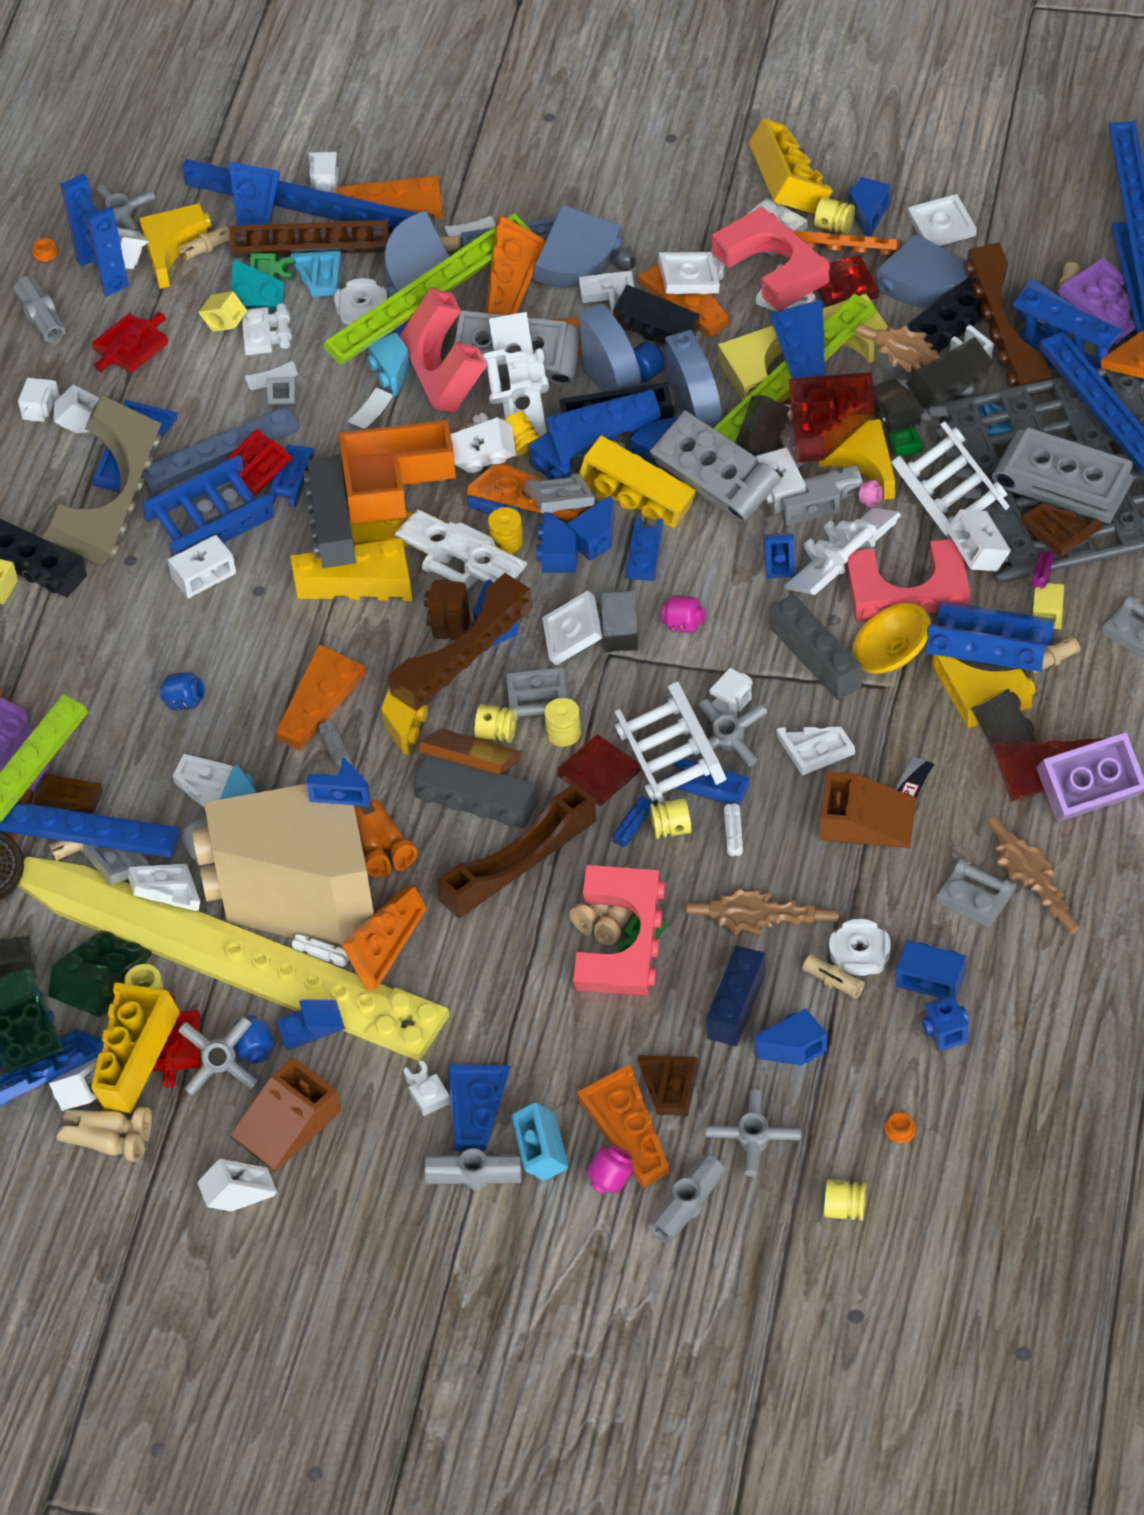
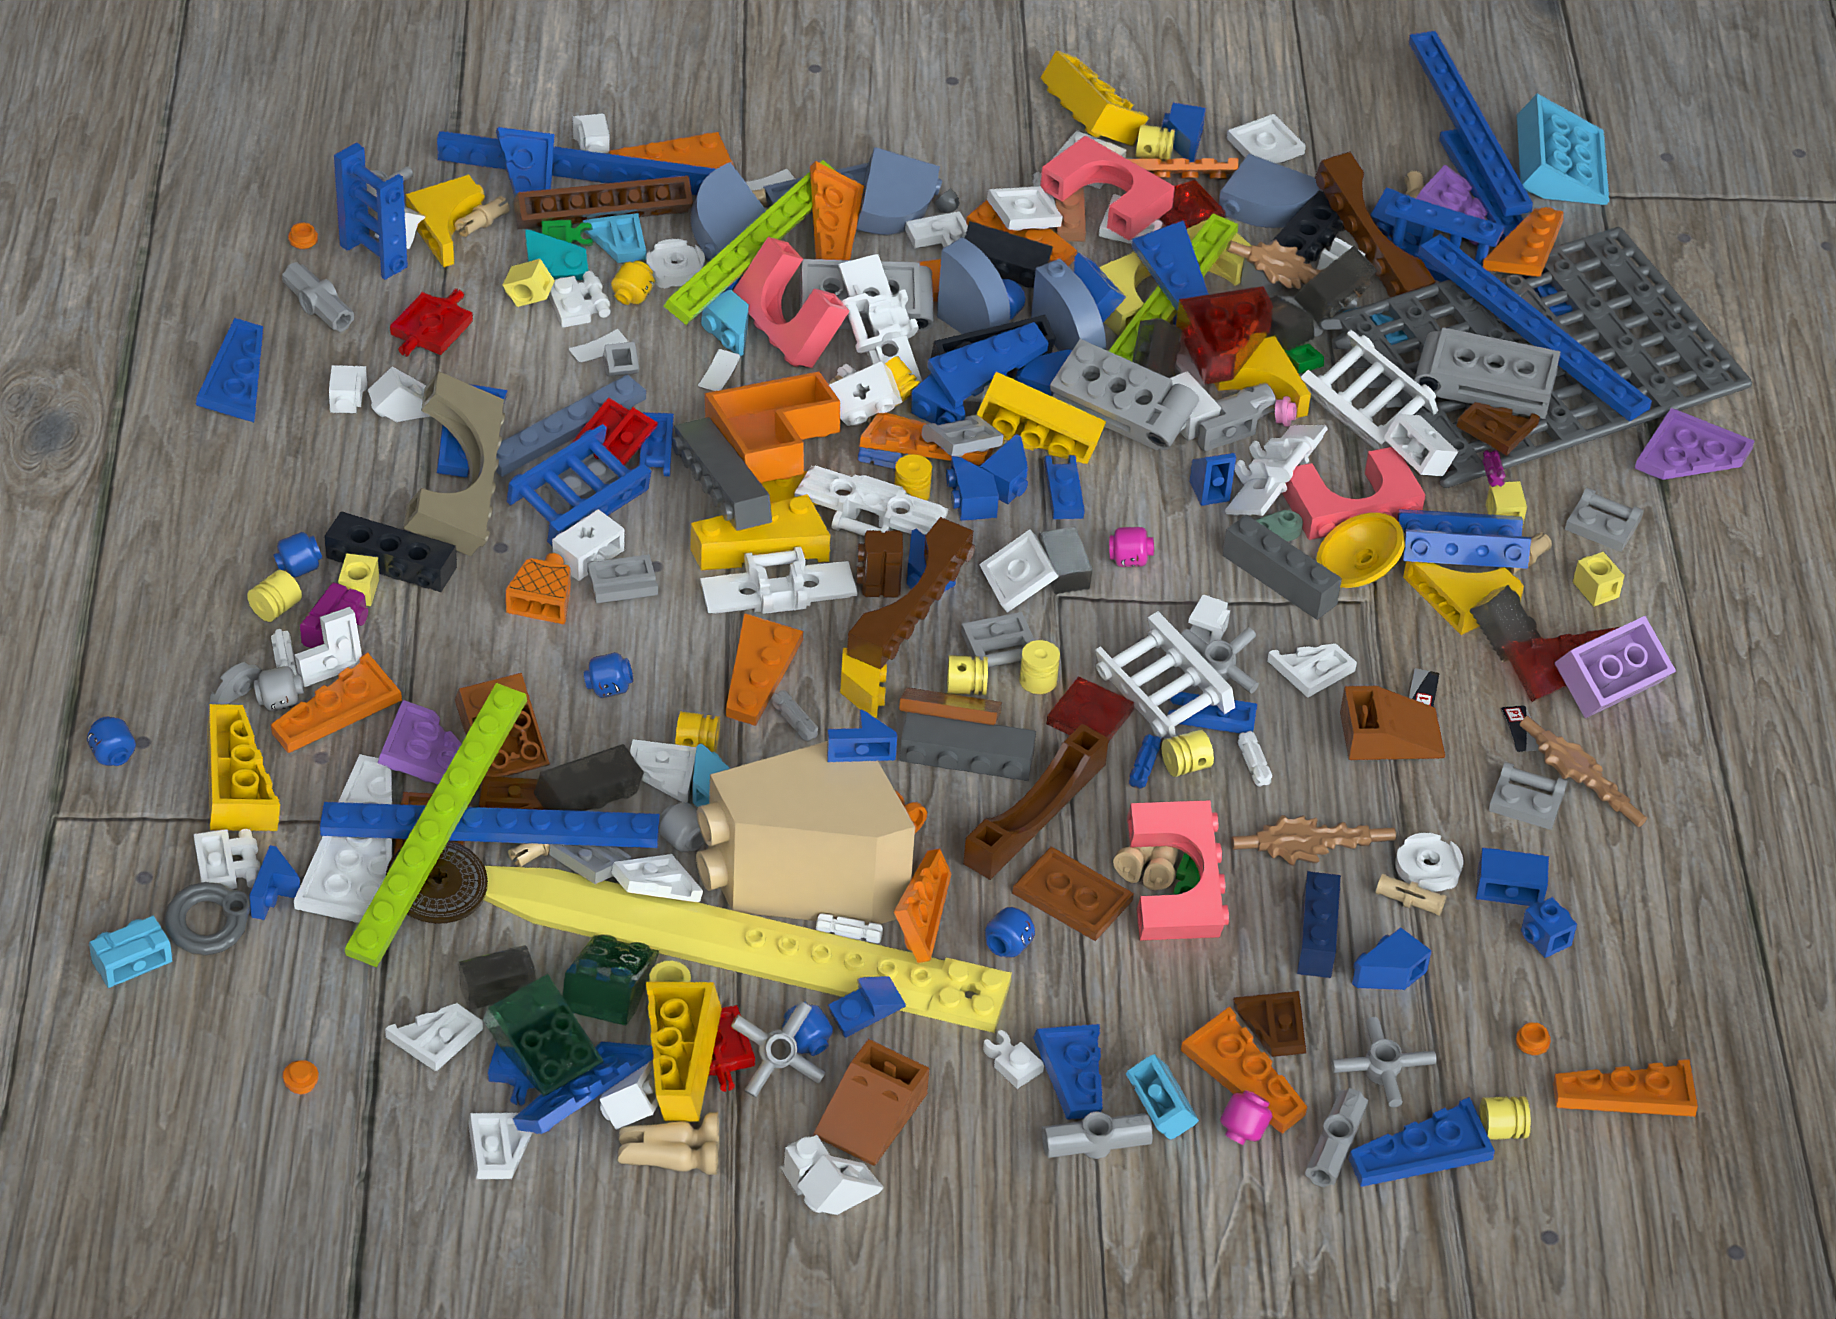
camera: 20 degrees left, 5 degrees down
(88, 744) = (524, 745): none -> dark orange slope
(132, 790) = (590, 781): none -> clear smoke brick
(148, 604) = (541, 590): none -> orange torso
(208, 1154) = (801, 1157): none -> white window
(222, 601) = (622, 578): none -> light grey plate
(242, 751) = (695, 729): none -> yellow piece
(316, 318) = (632, 282): none -> yellow head
(357, 627) = (778, 594): none -> white piece
(456, 971) = (1009, 932): none -> blue head
(528, 939) = (1073, 893): none -> dark orange tile
(724, 358) = (1103, 290): none -> blue slope
(736, 283) = (1073, 219): none -> nougat plate
(779, 1216) = (1437, 1144): none -> blue wing
(830, 606) = (1283, 523): none -> sand green plate
(988, 837) = (1522, 739): none -> sticker
(990, 1191) = (1640, 1091): none -> orange wing
(1111, 687) = (1598, 578): none -> light yellow brick

